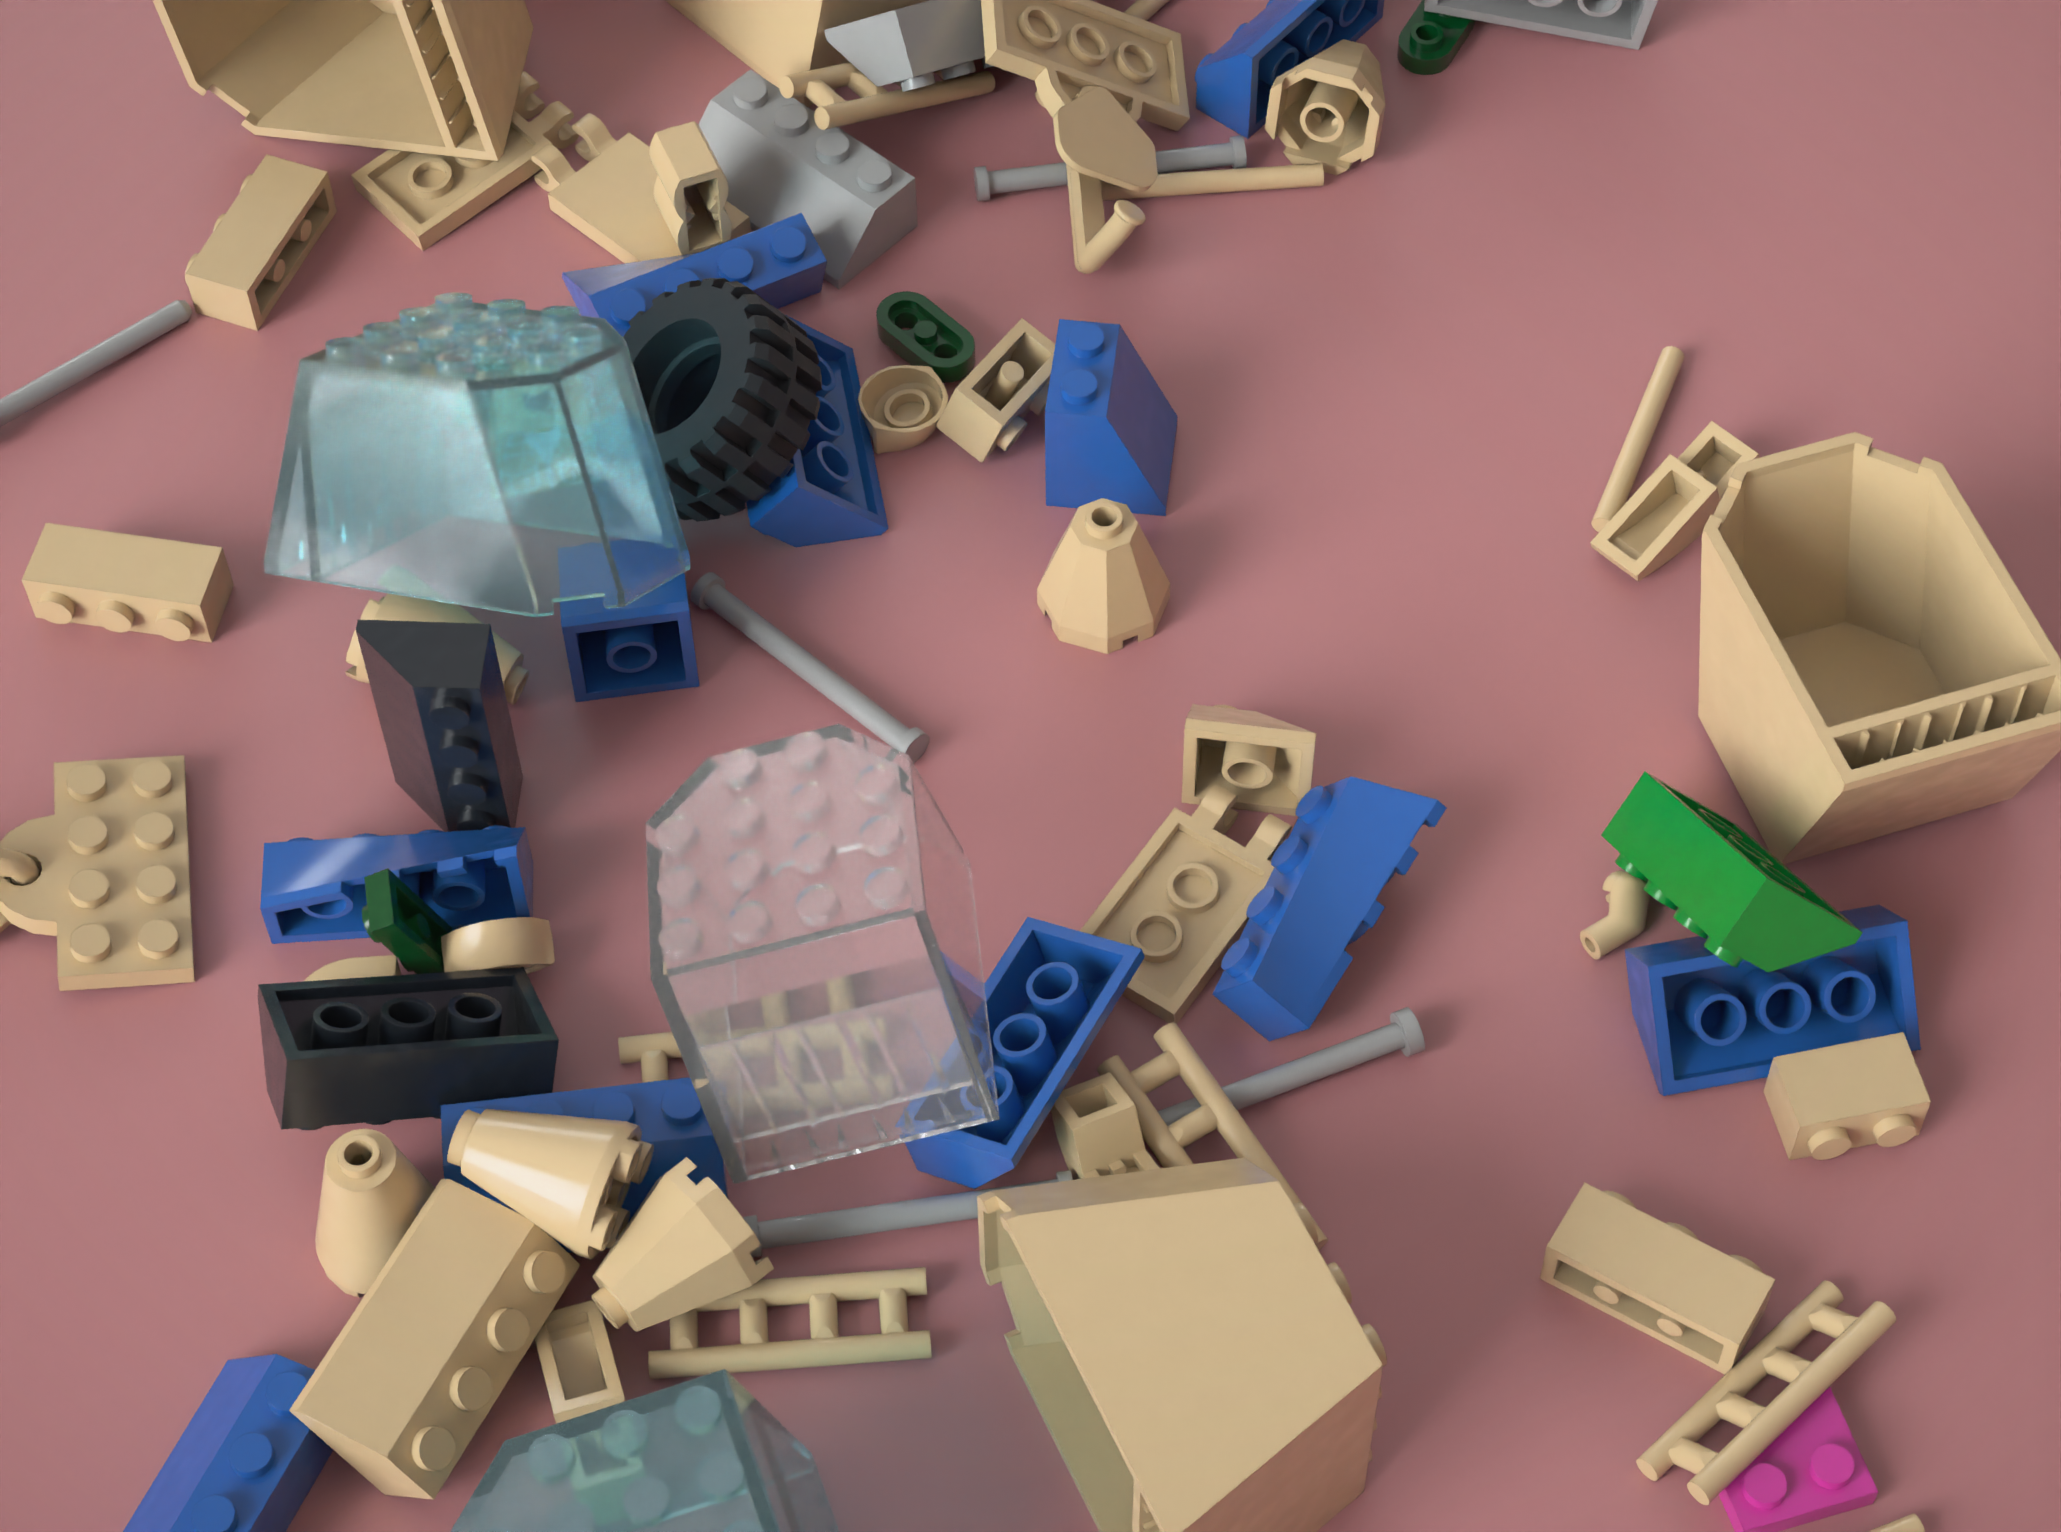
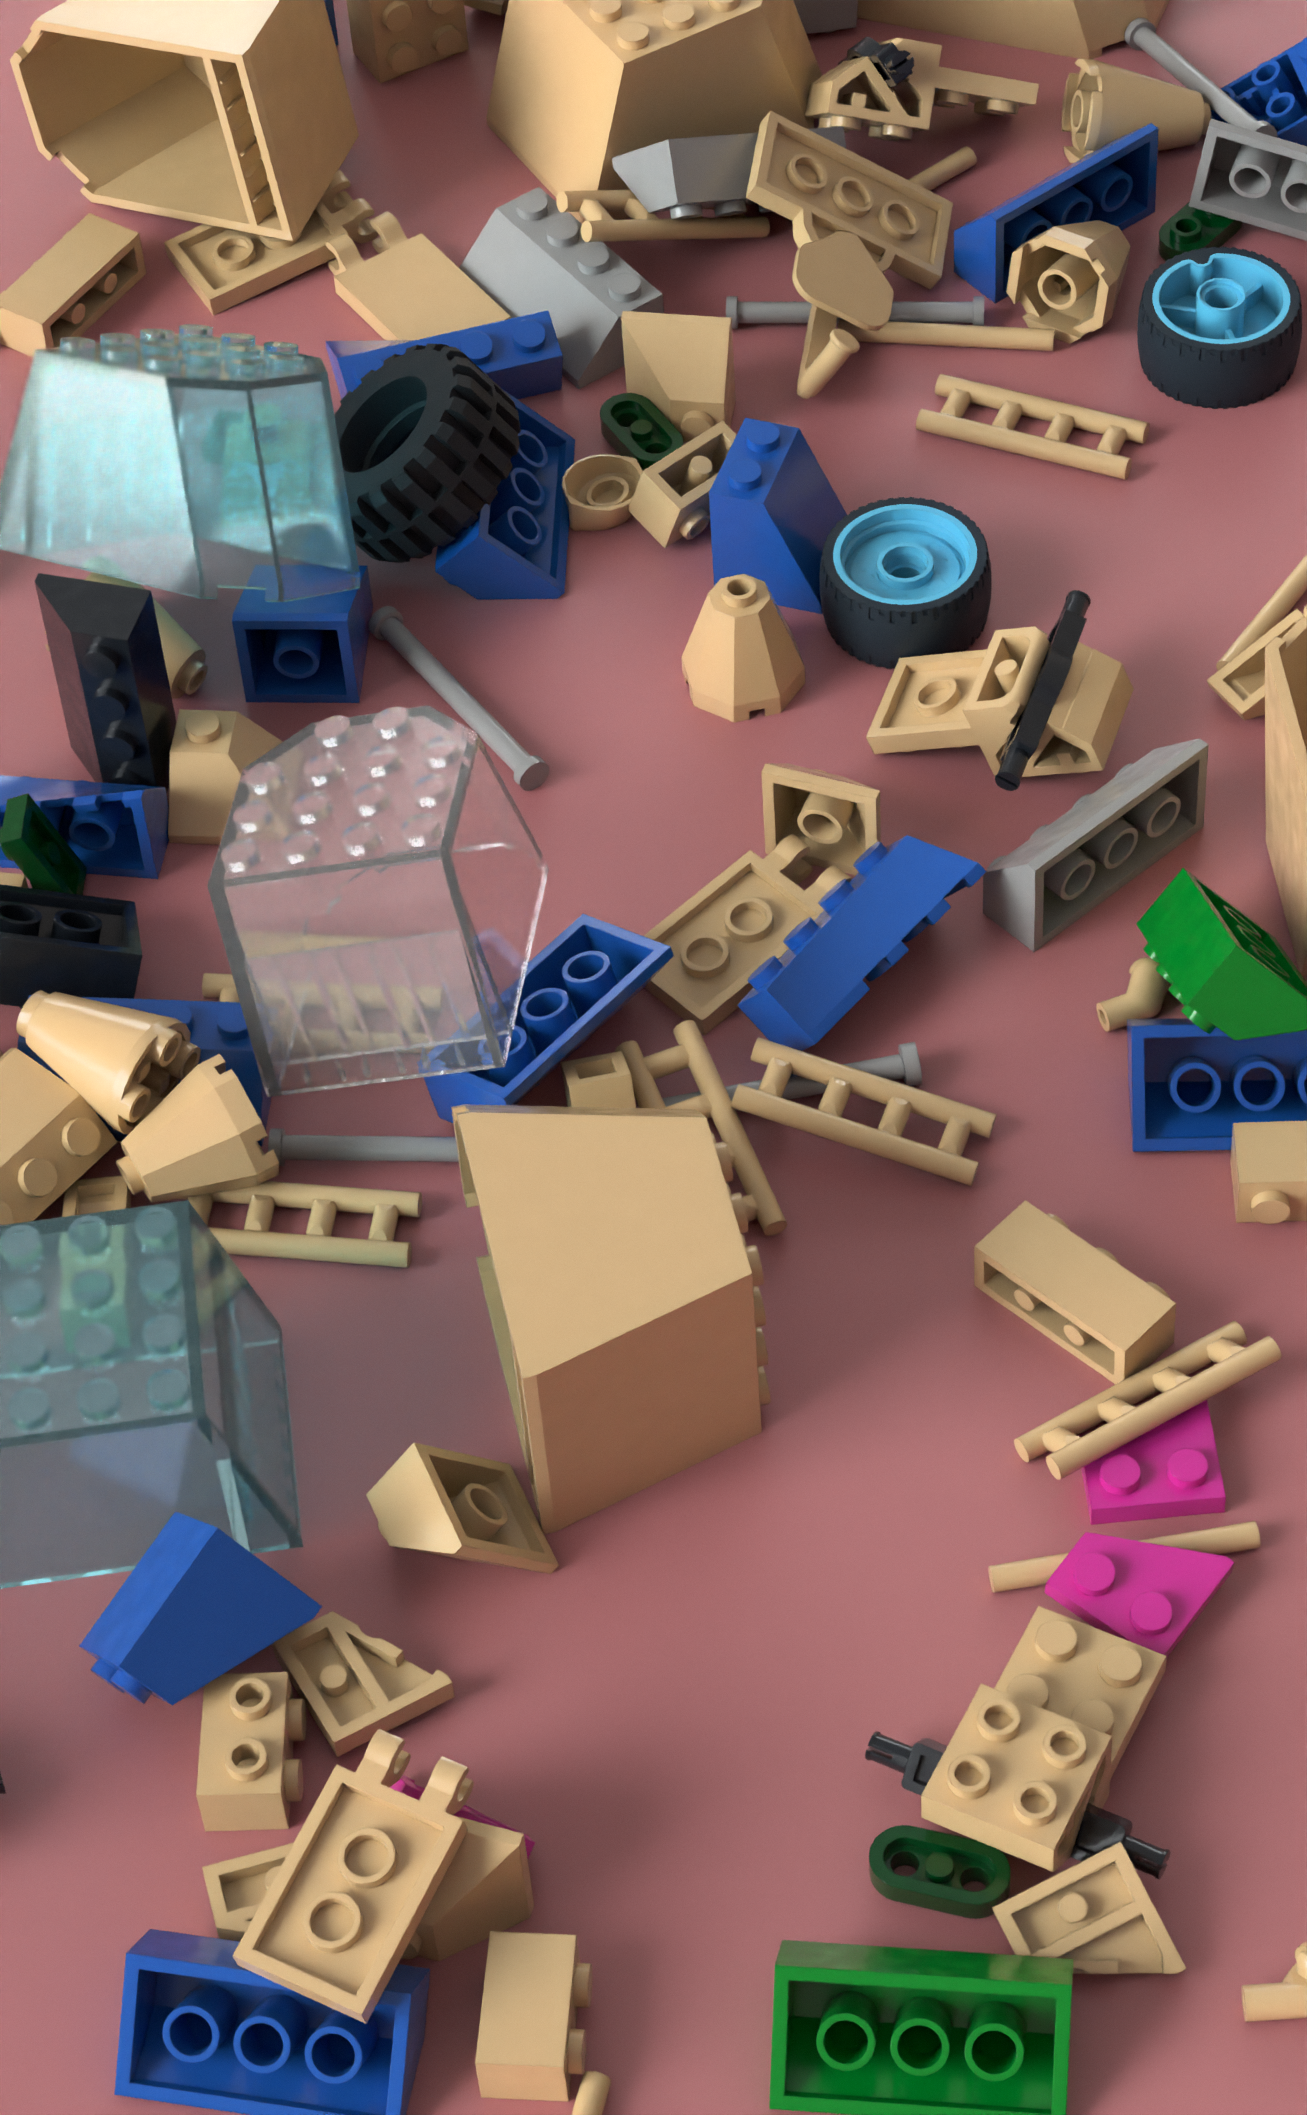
camera: 15 degrees right, 5 degrees down
(499, 944) = (120, 878): tan hat -> none
(586, 803) = (206, 770): none -> tan slope
(690, 188) = (452, 275): tan brick -> none
(956, 261) = (681, 367): none -> tan slope
(1255, 475) = (905, 581): none -> wheel
(1350, 296) = (1048, 448): none -> tan bar
(1412, 1079) = (884, 1140): none -> tan bar
(1421, 594) = (1023, 700): none -> tan piece
(1495, 143) = (1219, 327): none -> wheel
(1535, 746) = (1098, 844): none -> light grey slope

